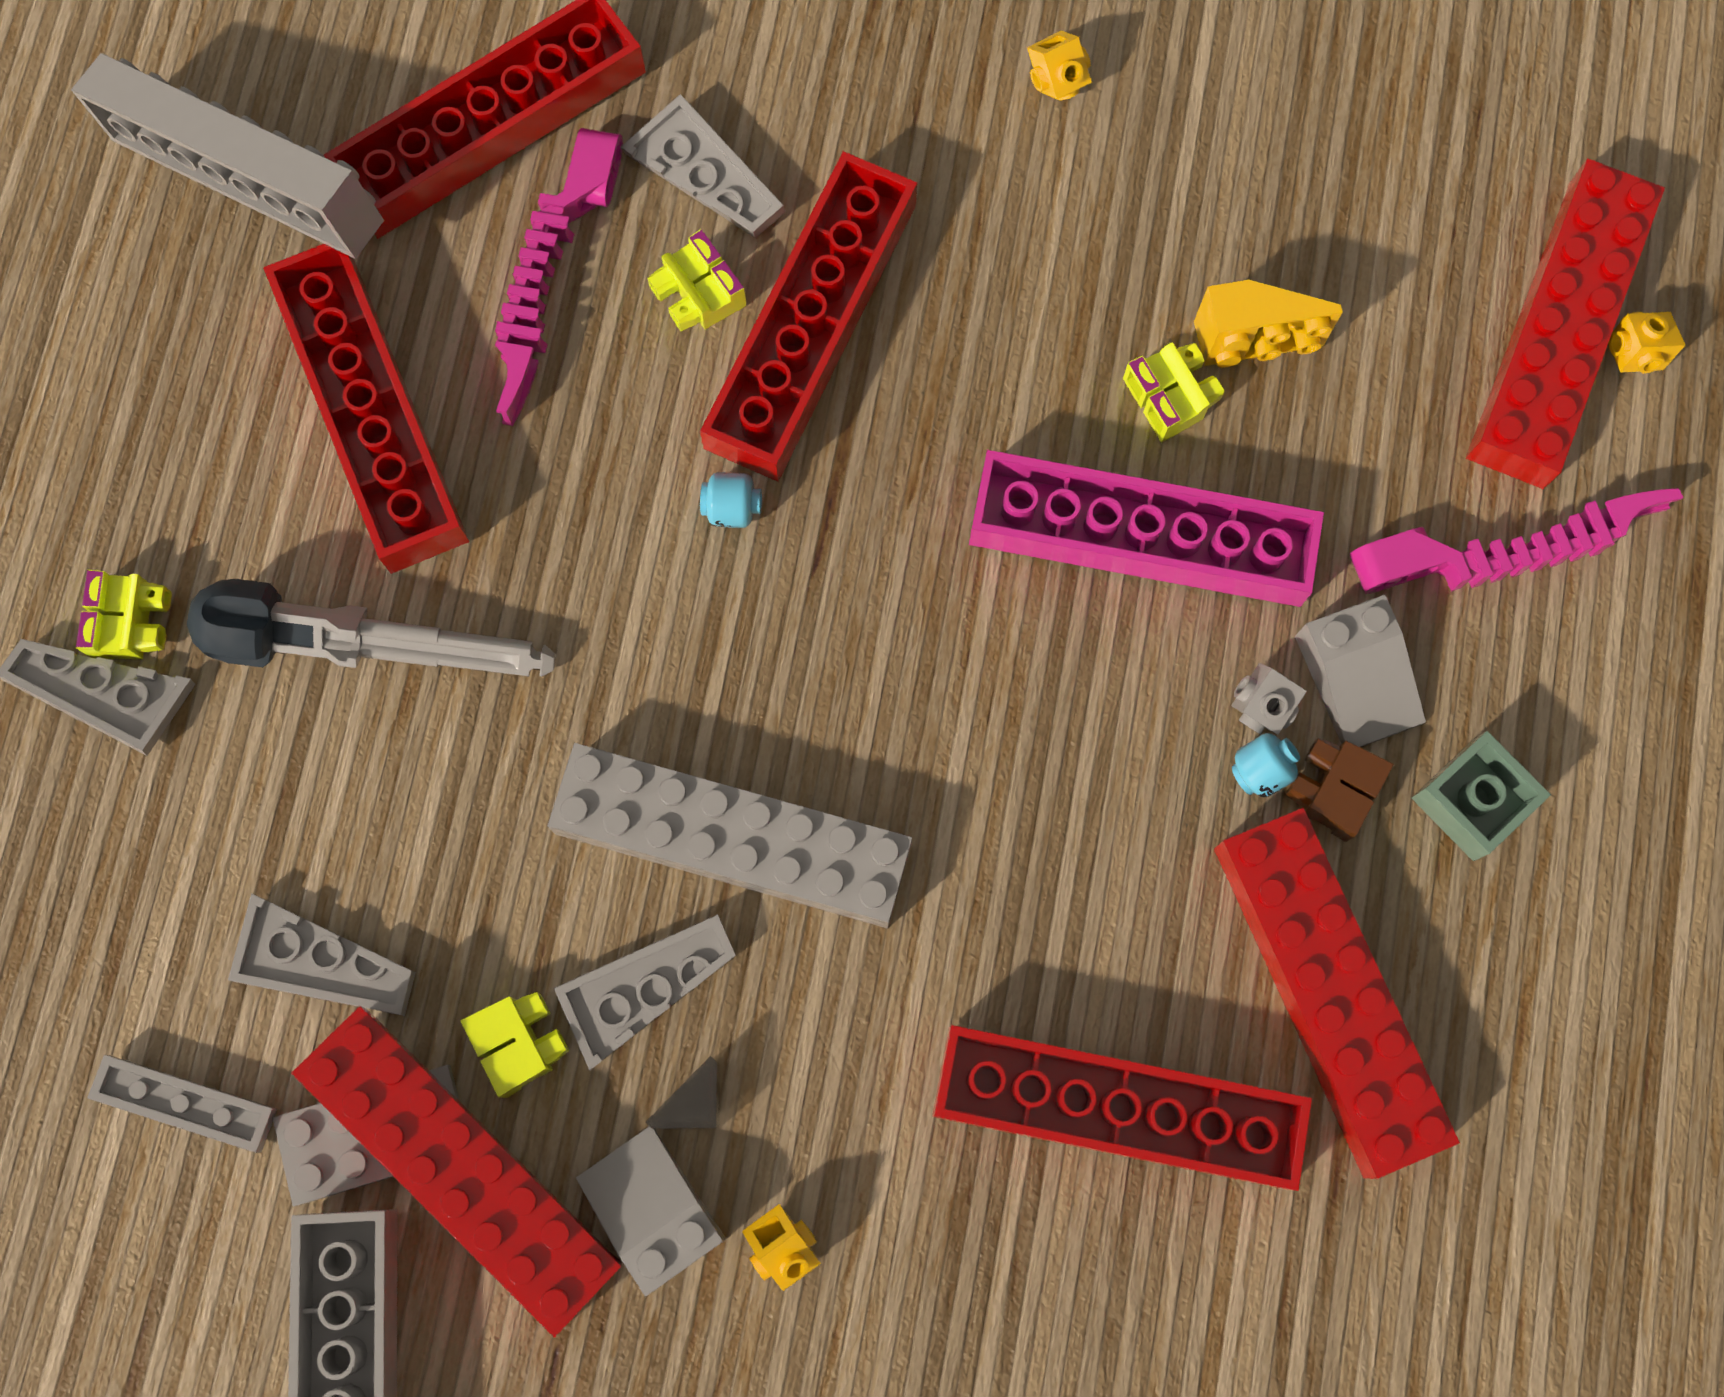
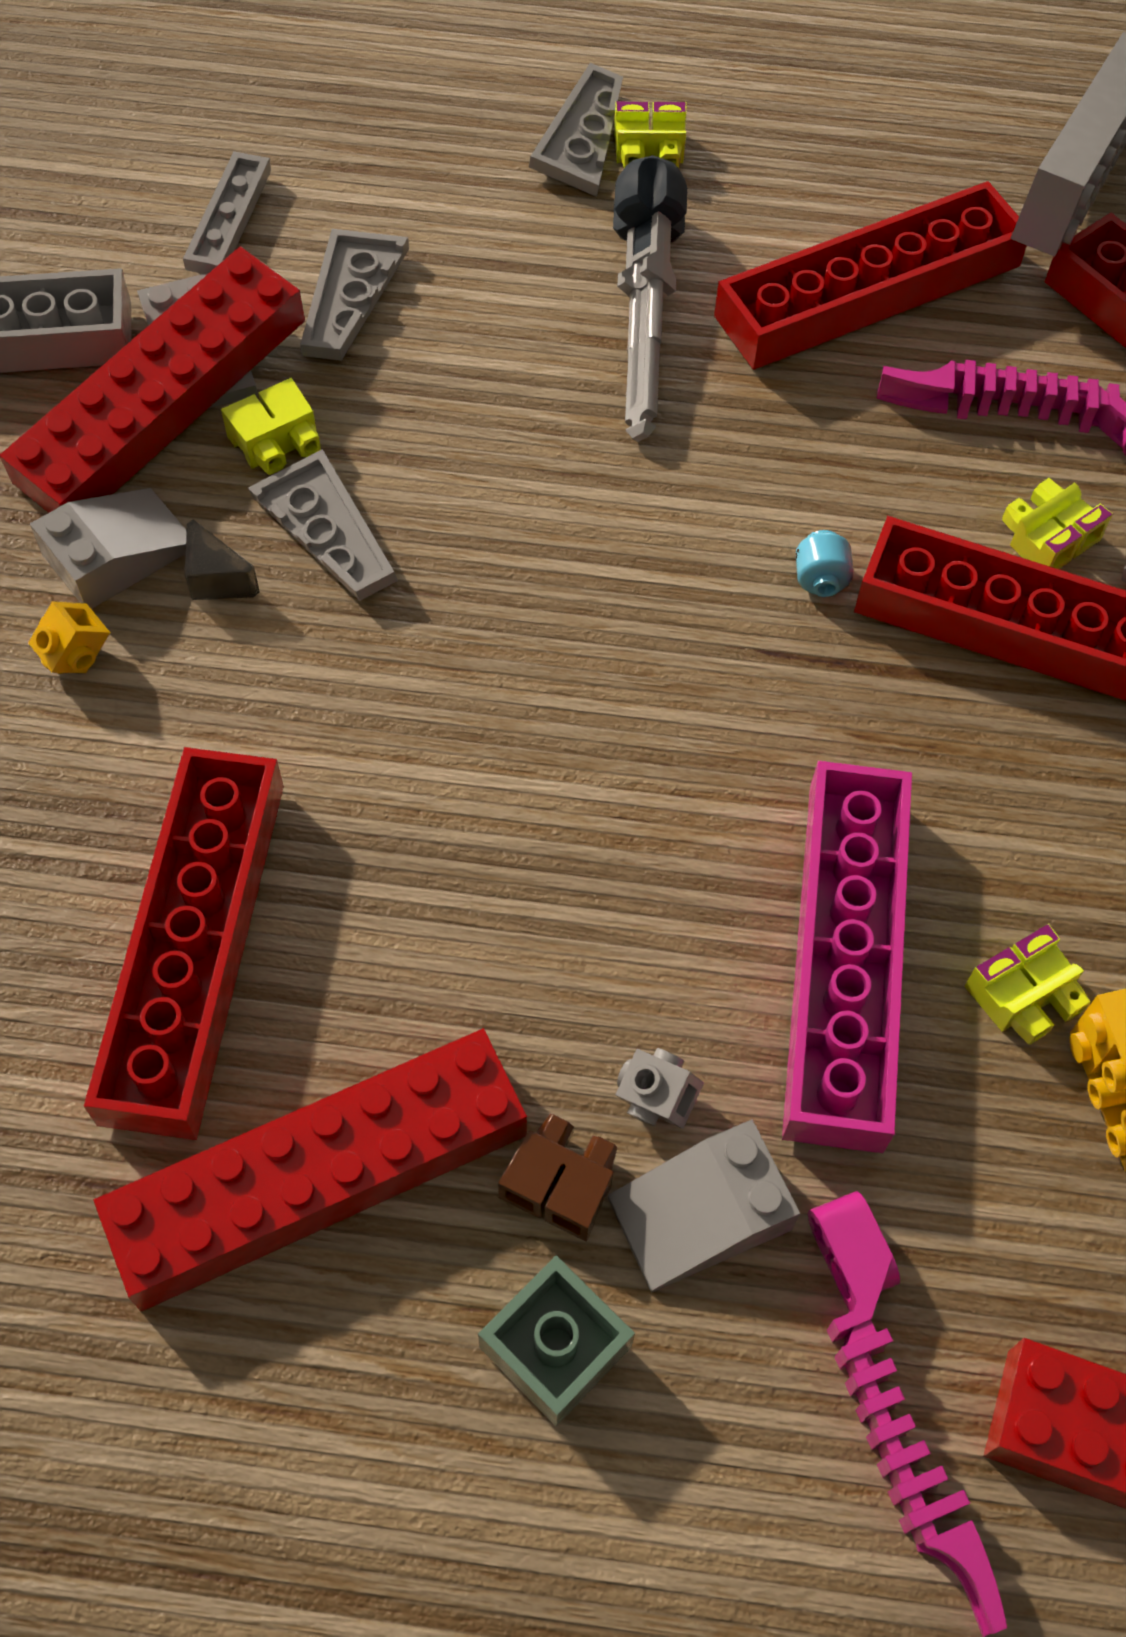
camera: 85 degrees right, 15 degrees down
(730, 835) = (471, 588): light grey brick -> none
(1266, 765) = (579, 1088): medium azure head -> none

